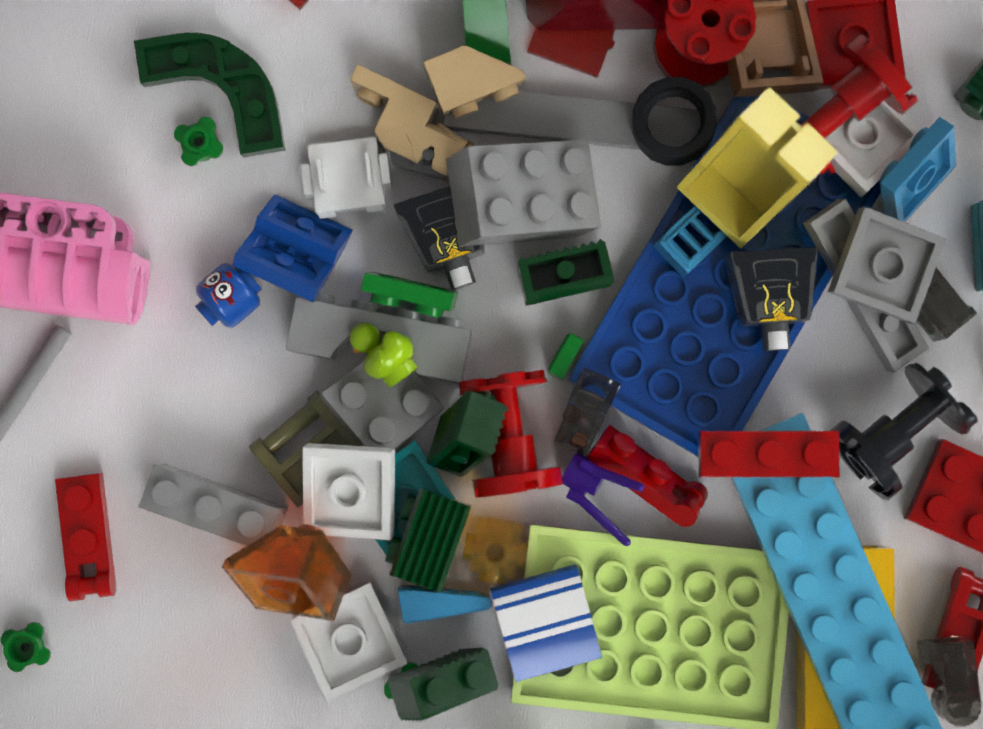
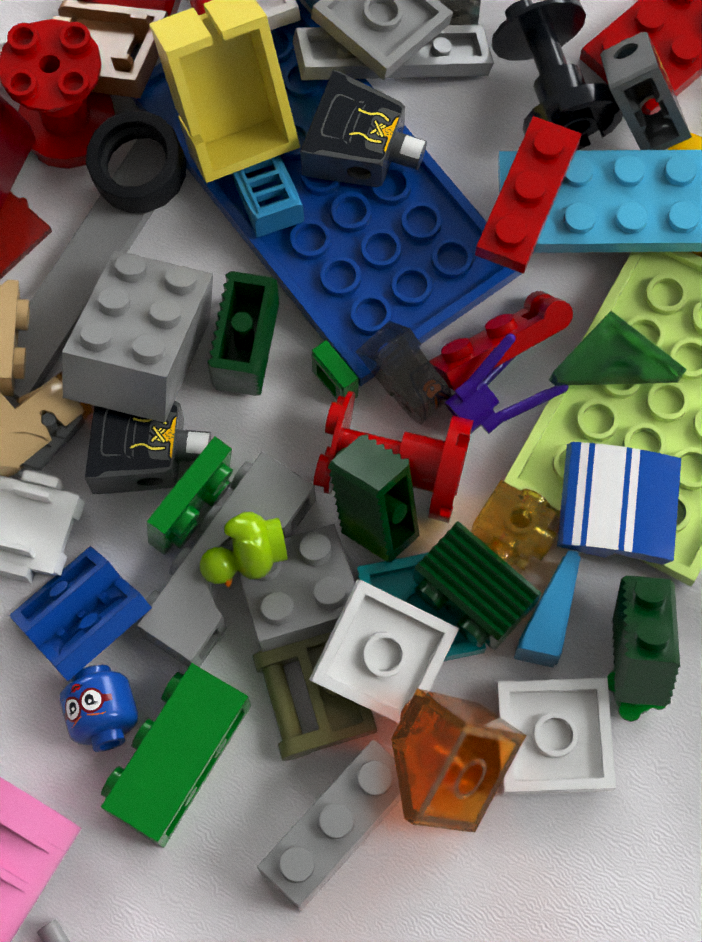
camera: 65 degrees left, 15 degrees down
(218, 365) = (175, 754): none -> green brick
(669, 573) = (616, 355): none -> clear green tile
(923, 496) = (635, 77): none -> dark grey torso

